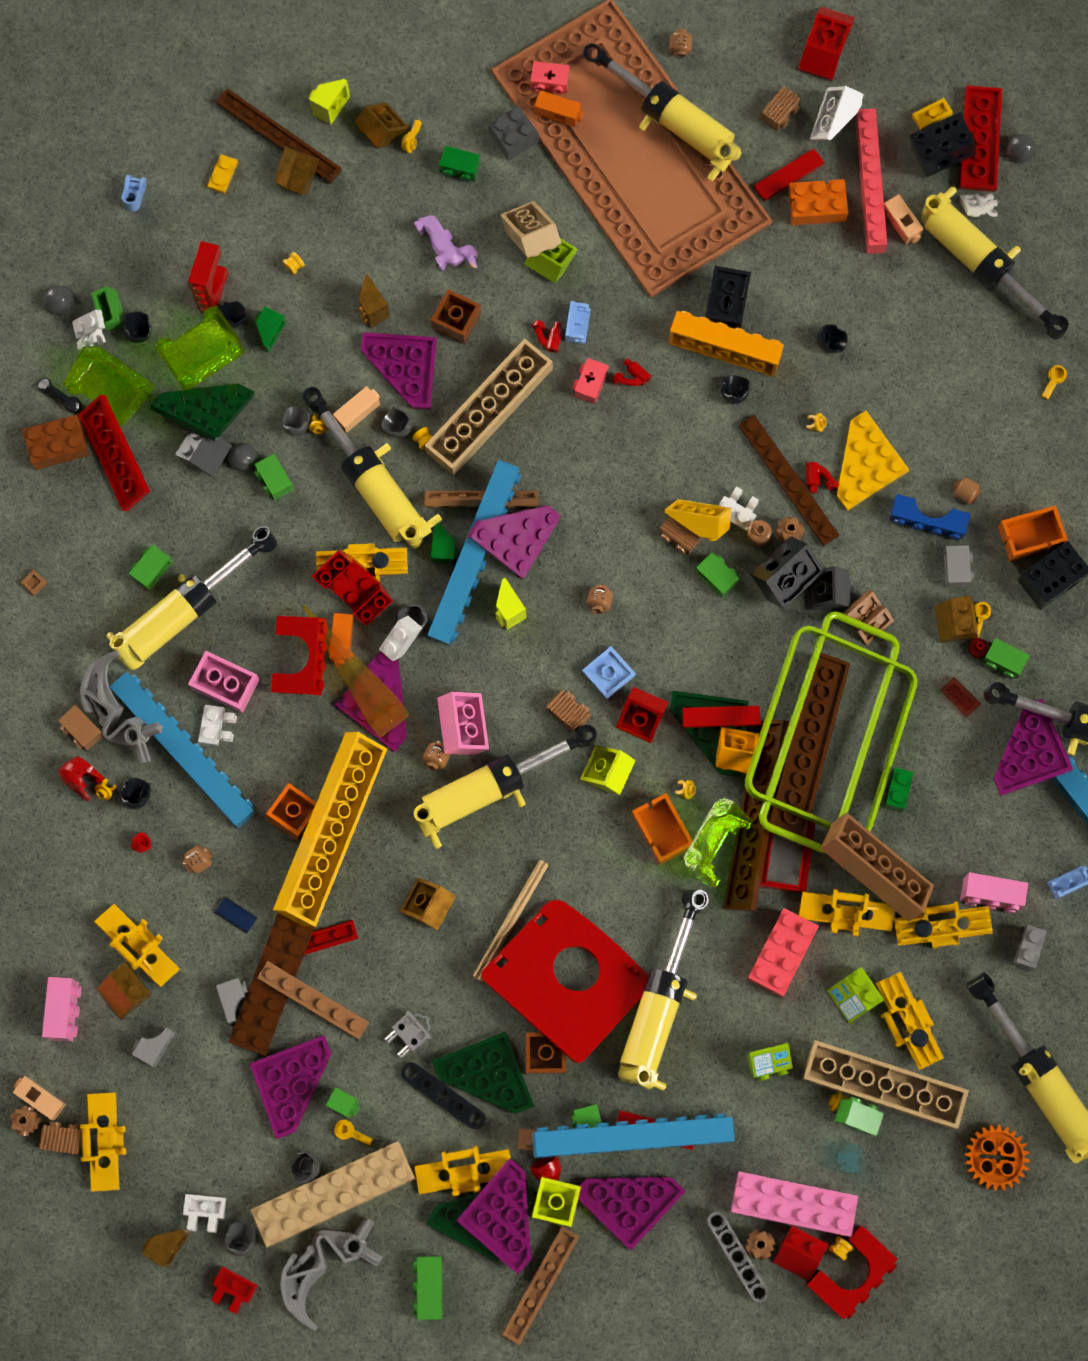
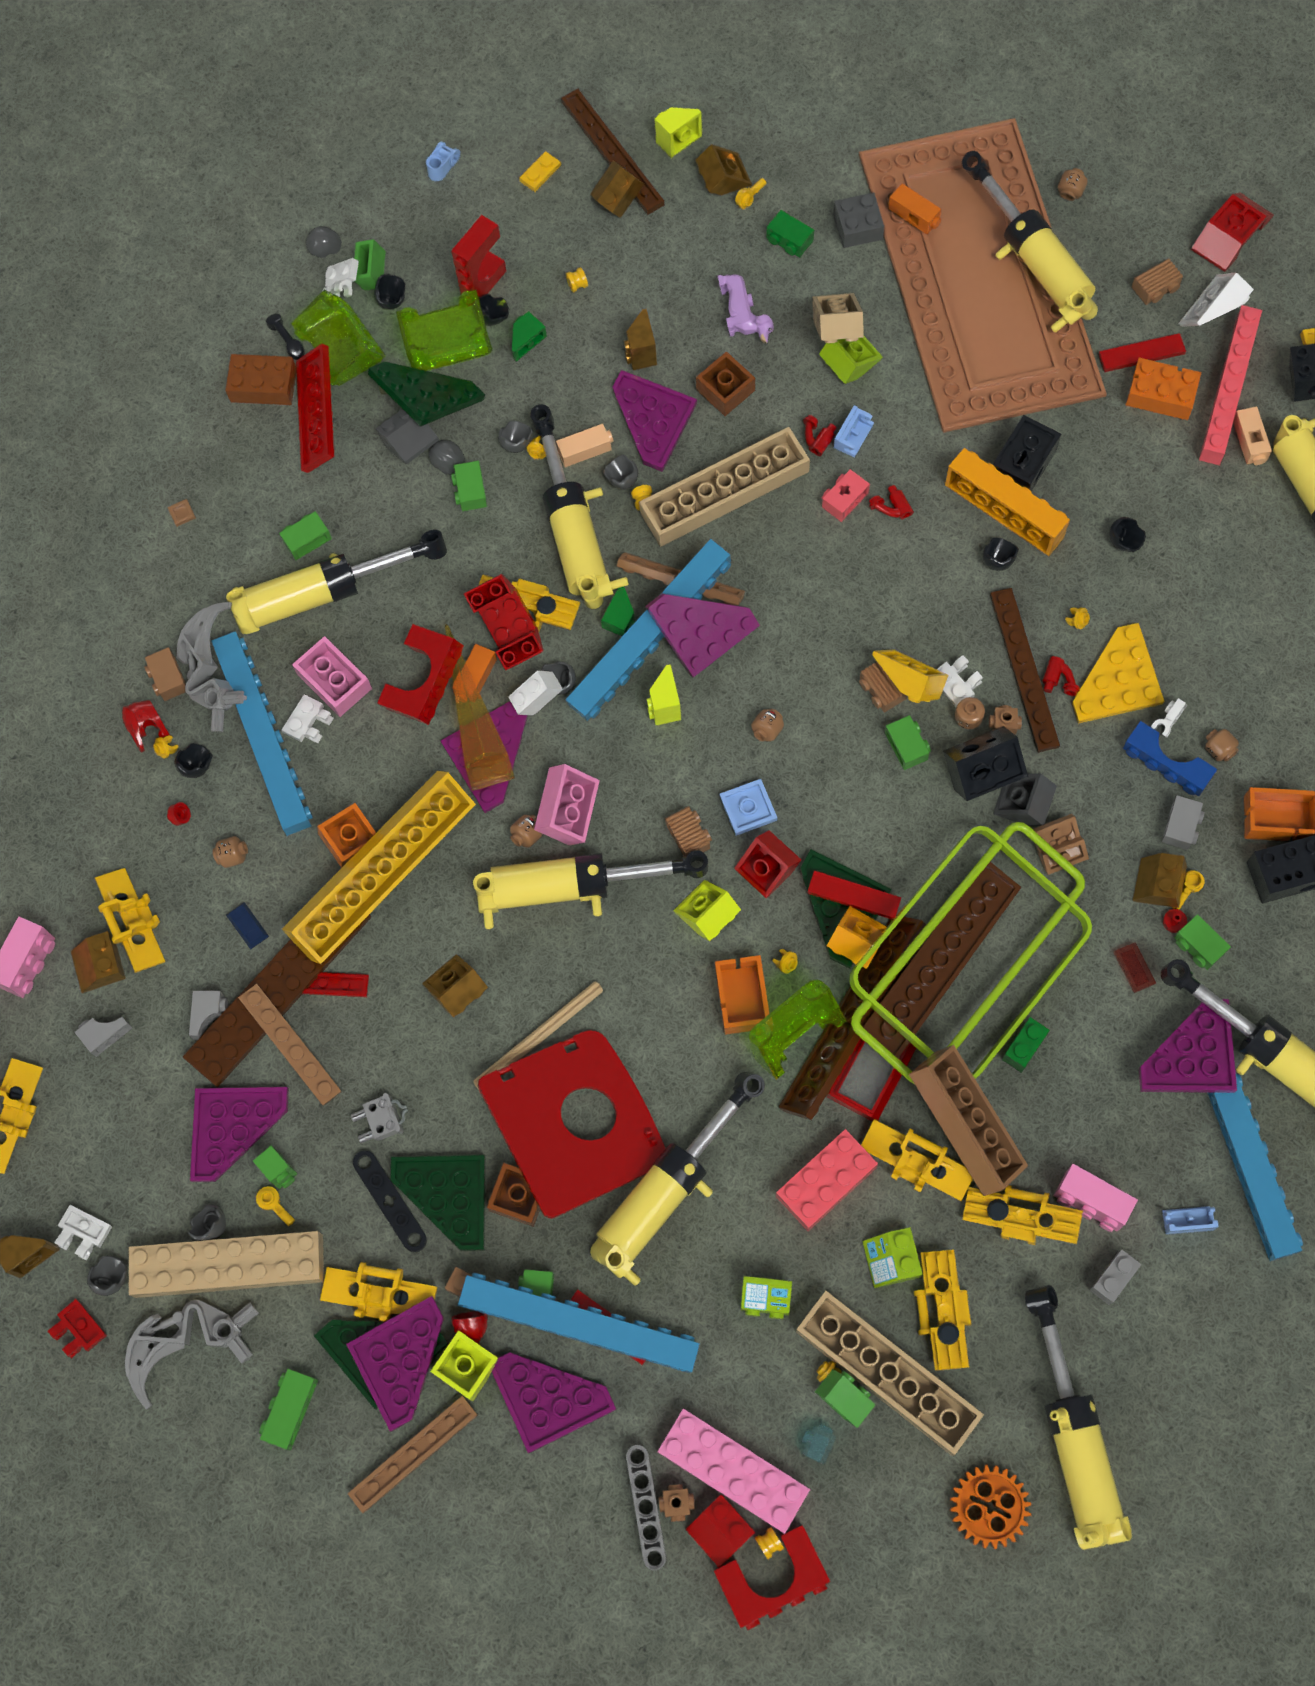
camera: 25 degrees right, 5 degrees down
(543, 71) = (918, 175): coral brick -> none
(920, 477) = (1173, 712): none -> white plate

